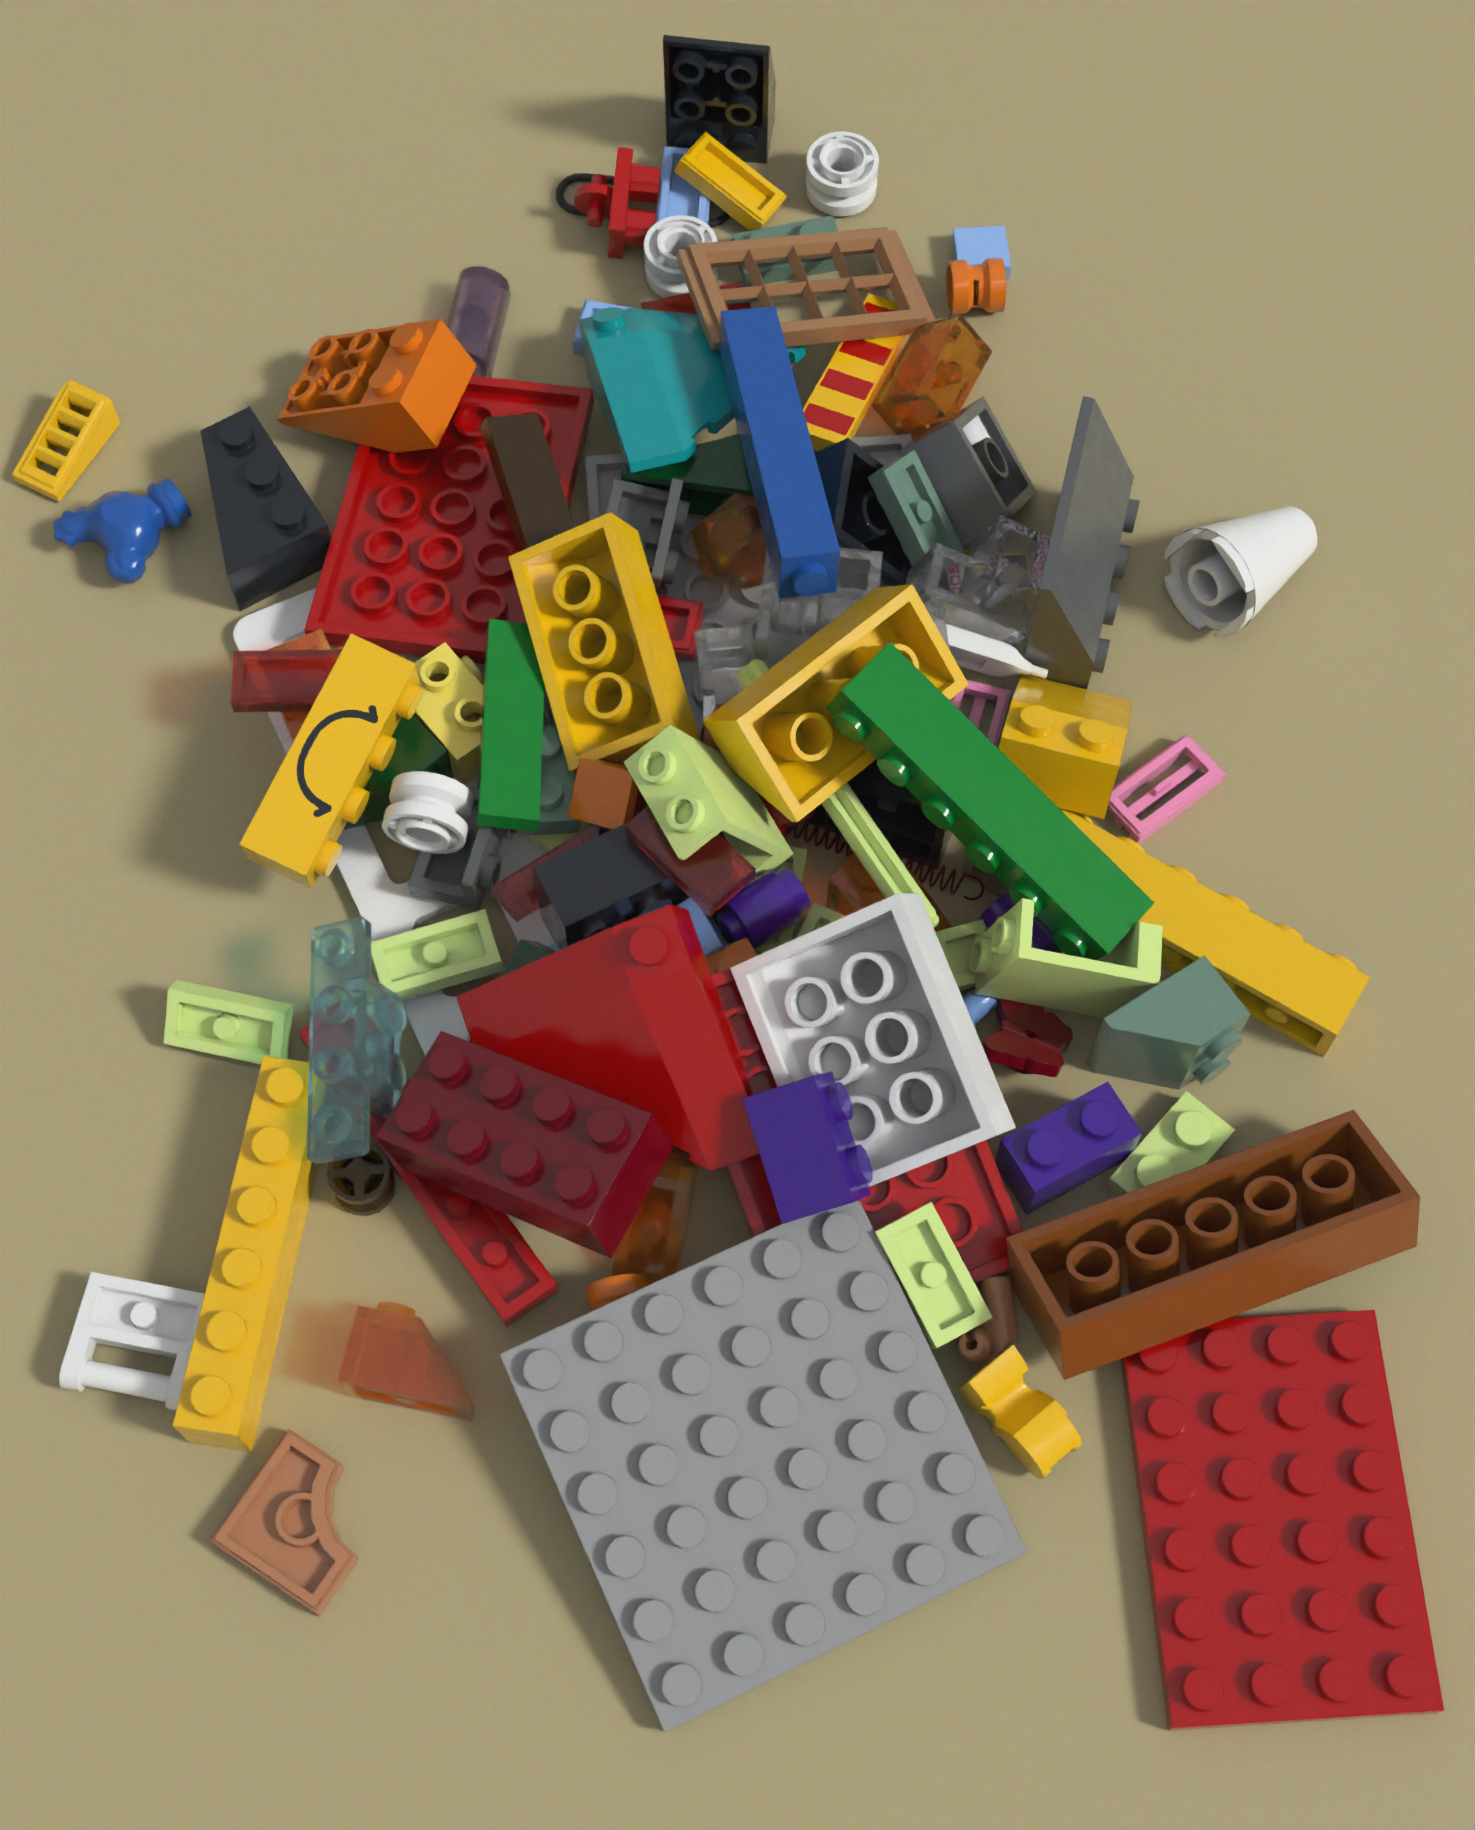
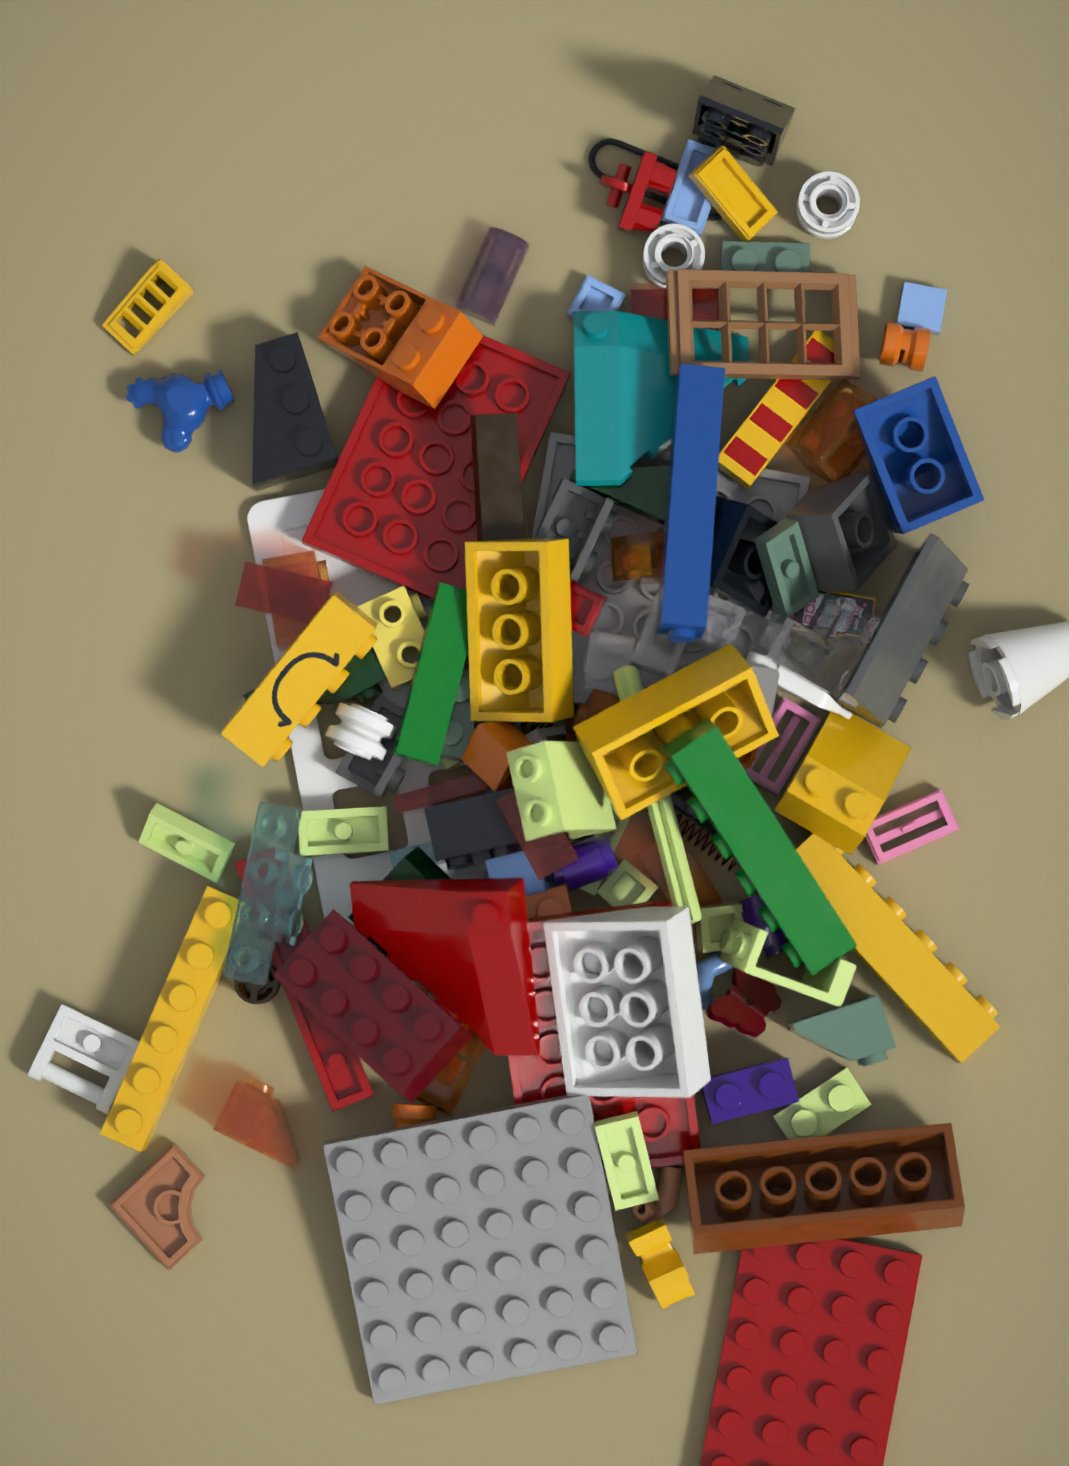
camera: 15 degrees right, 20 degrees up
(809, 1146) = (563, 1063): dark purple brick -> none
(1029, 369) = (916, 456): none -> blue slope

